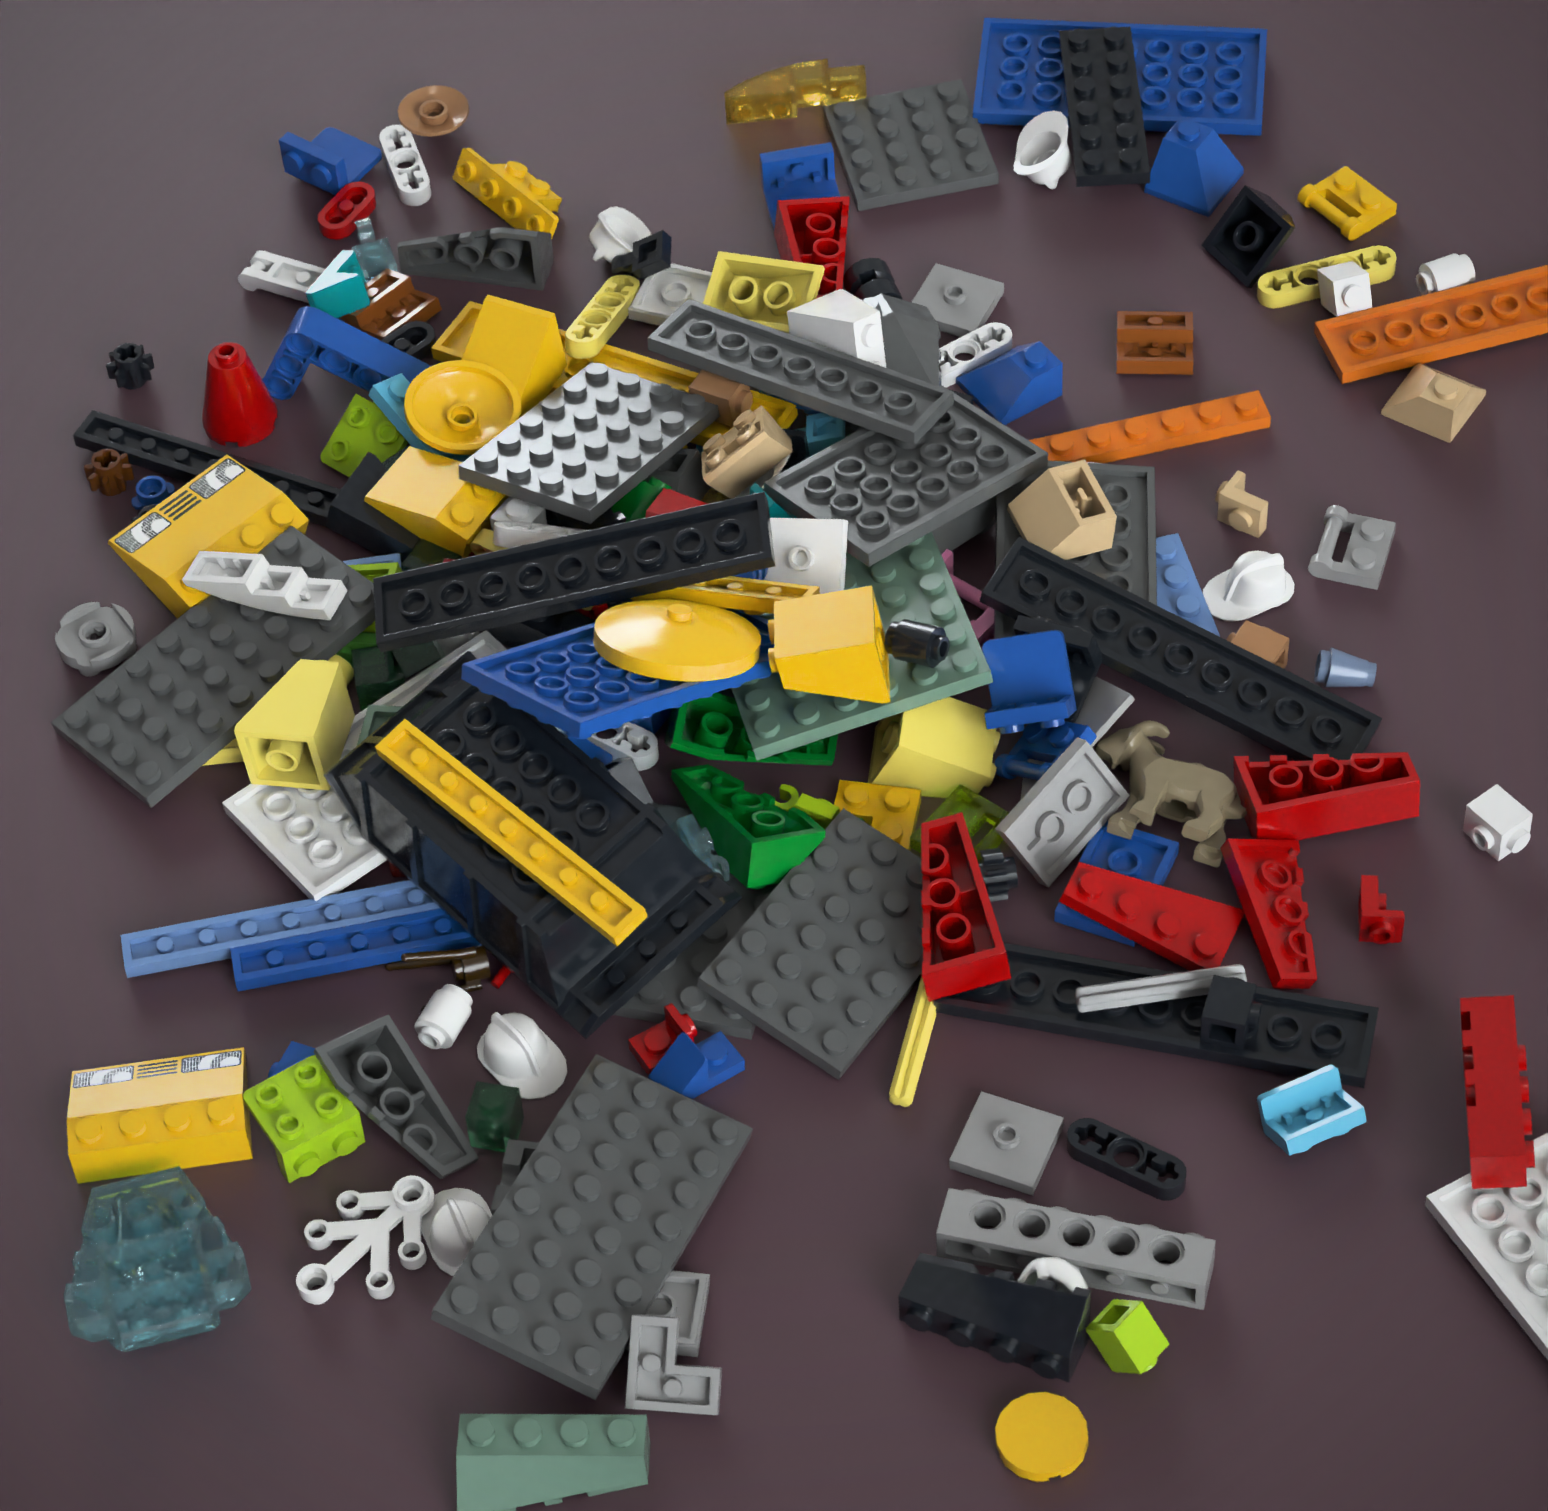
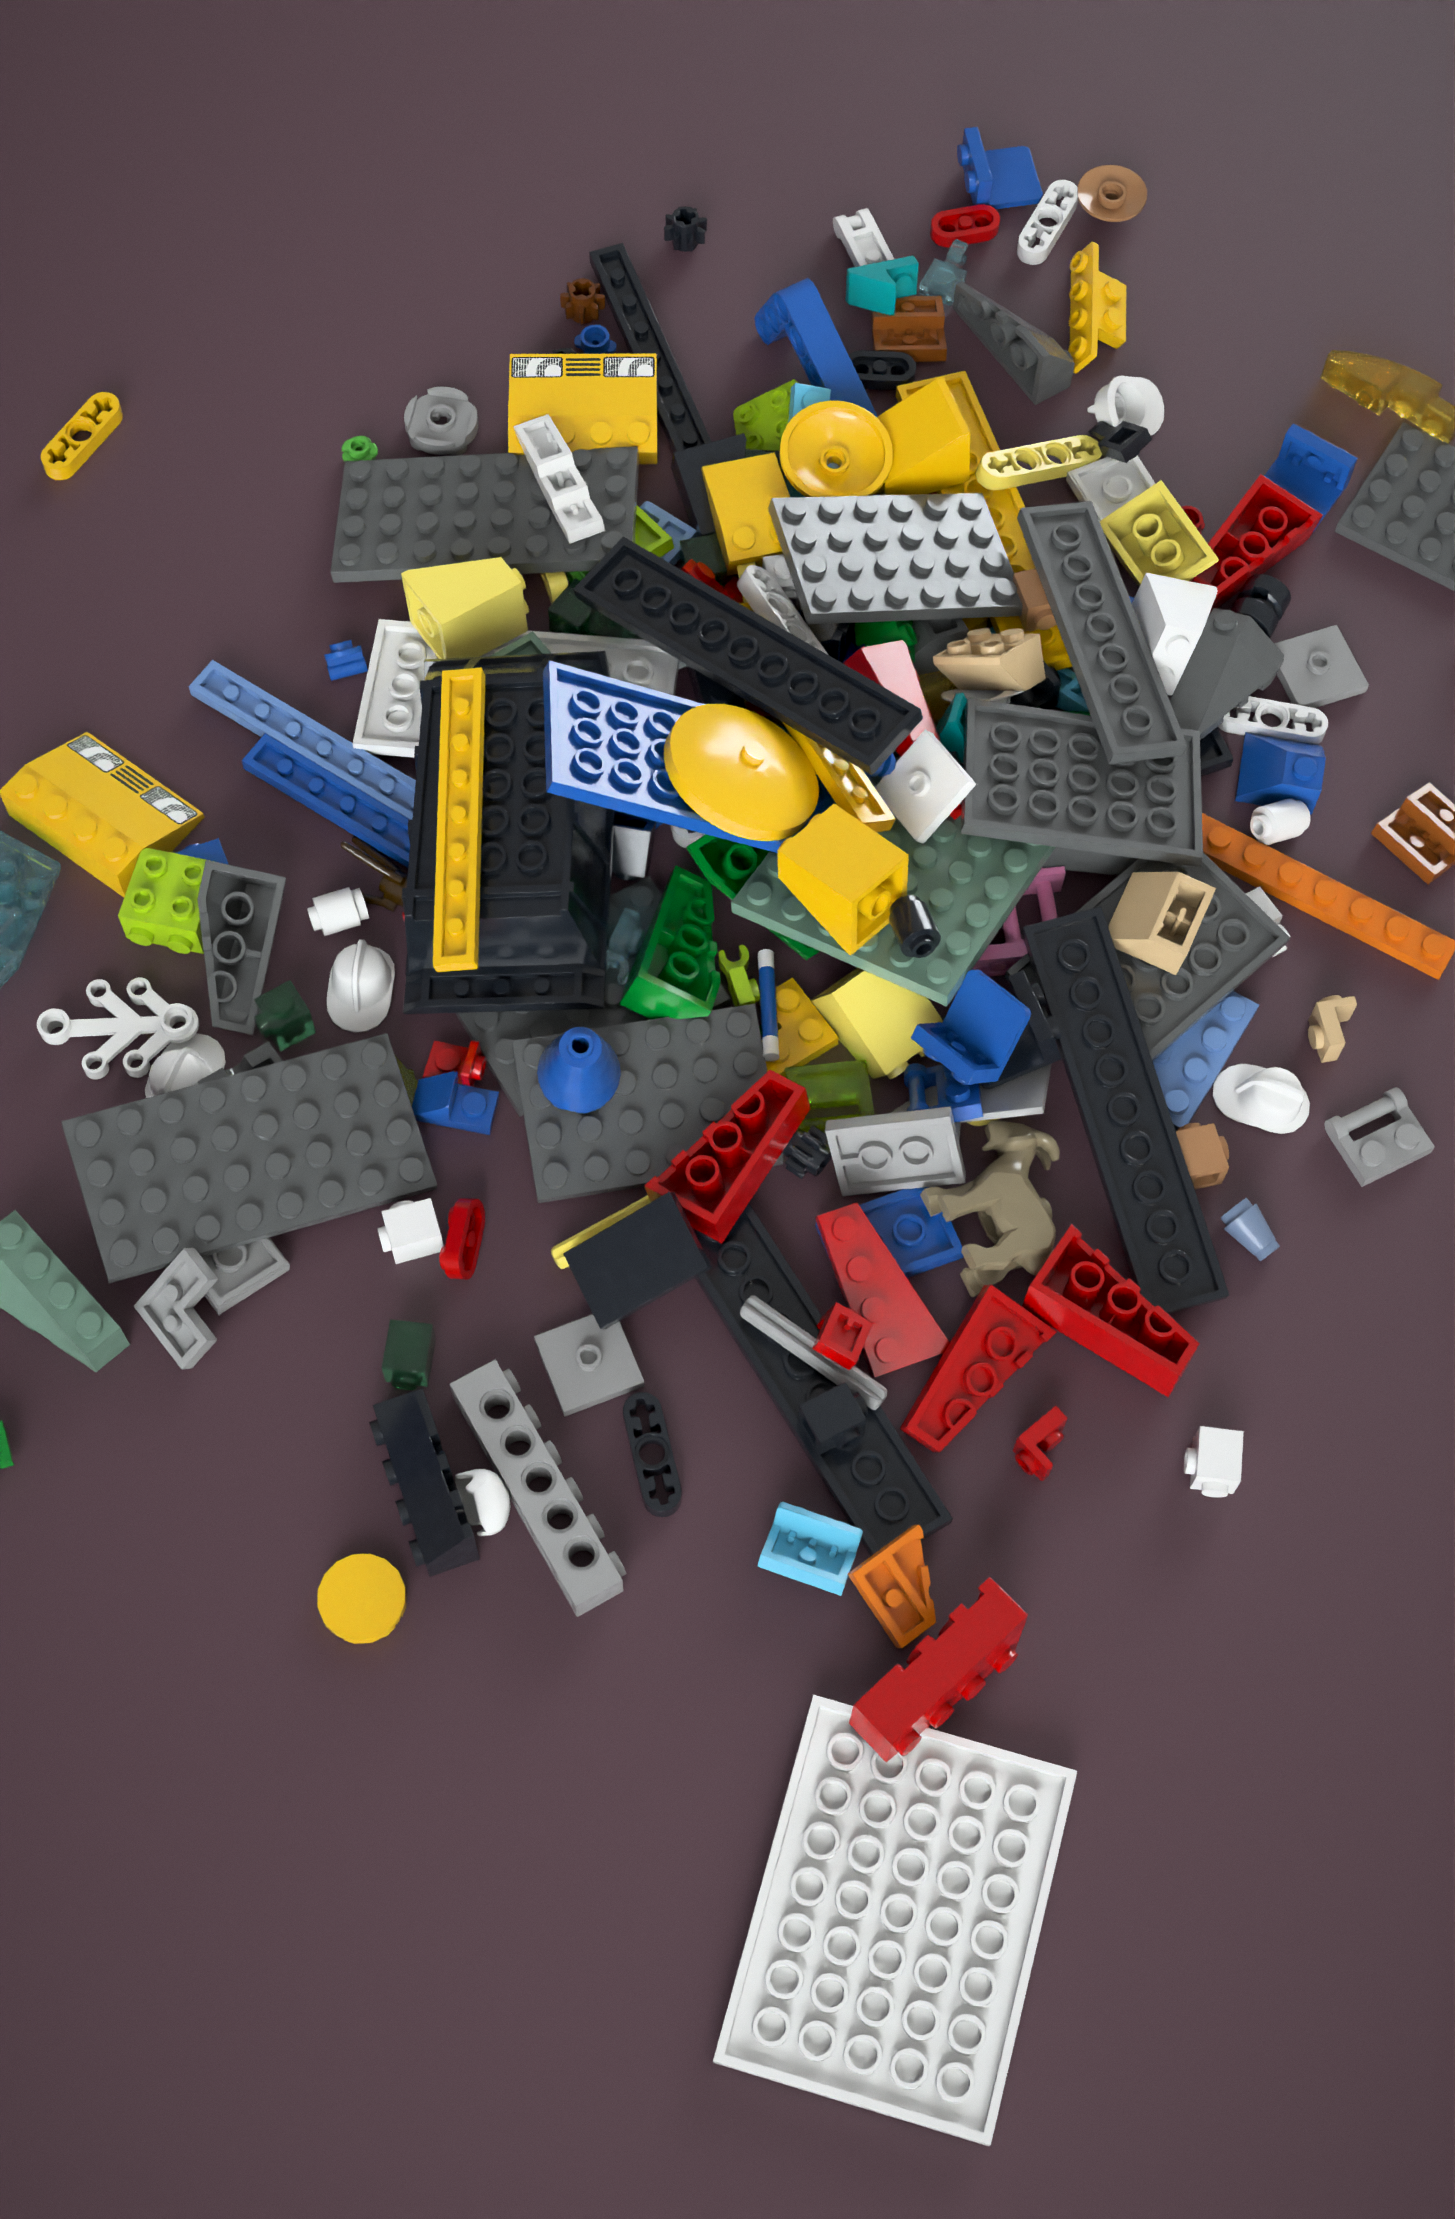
camera: 40 degrees right, 15 degrees up
(50, 707) = (363, 443): none -> bright green plate
(226, 854) = (345, 660): none -> blue plate
(236, 399) = (719, 315): red cone -> none
(774, 1171) = (410, 1230): none -> white brick
(778, 942) = (579, 1071): none -> blue cone
(825, 791) = (768, 1005): none -> blue bar
(828, 1156) = (463, 1239): none -> red plate
(875, 1249) = (408, 1354): none -> clear green brick
(973, 1031) = (637, 1260): none -> black tile
(1051, 410) = (1279, 821): none -> white brick
(1127, 1336) = (486, 1588): lime brick -> none
(1171, 953) = (842, 1335): none -> red bracket
(1398, 1080) = (897, 1587): none -> orange wing

